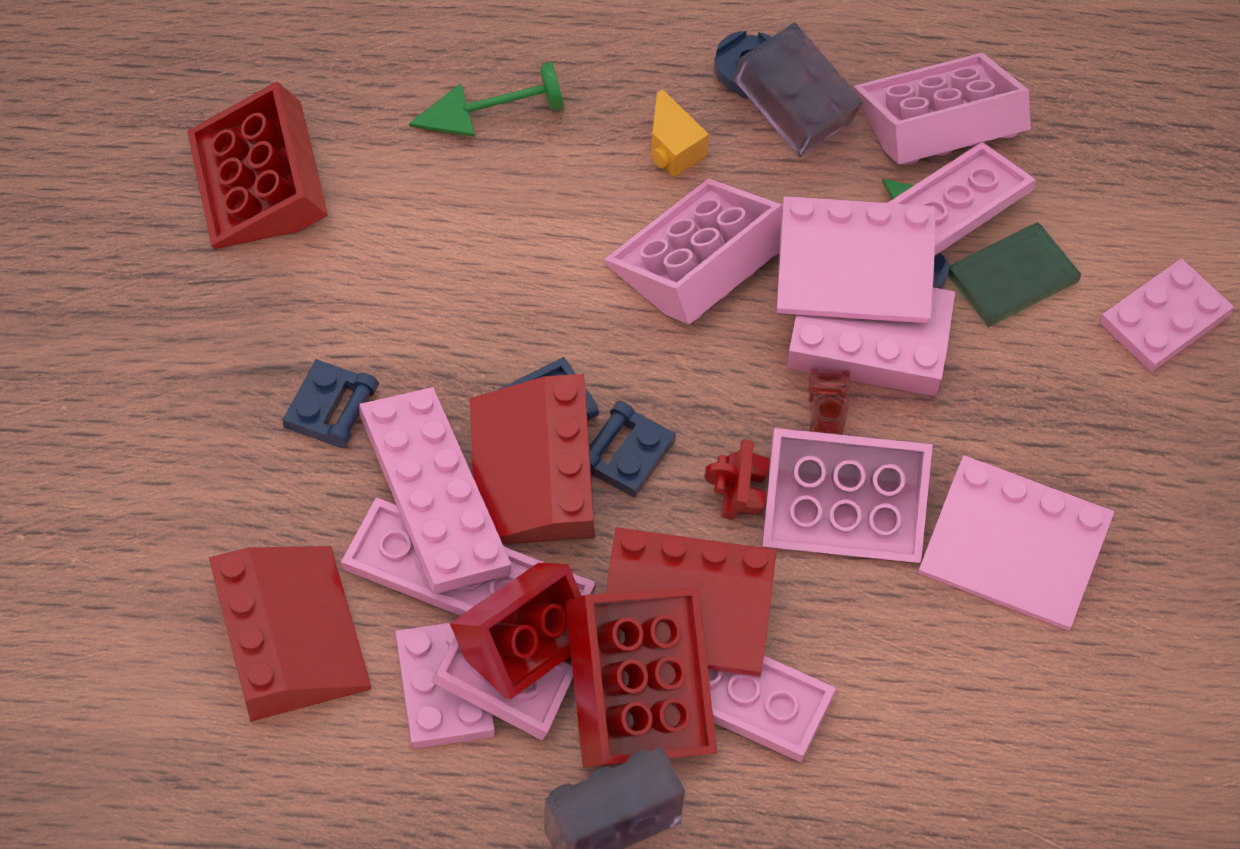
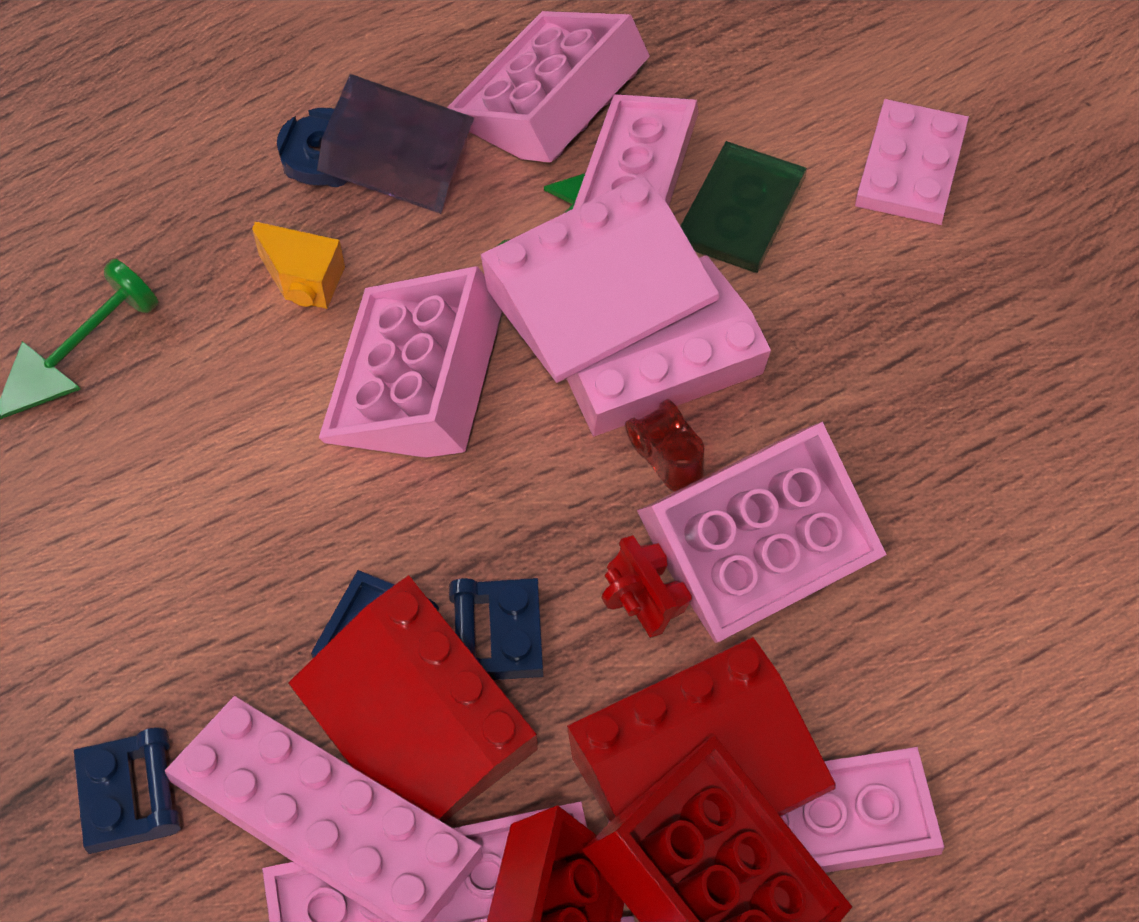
camera: 30 degrees left, 0 degrees up
(1016, 542) = (963, 473): bright pink slope -> none

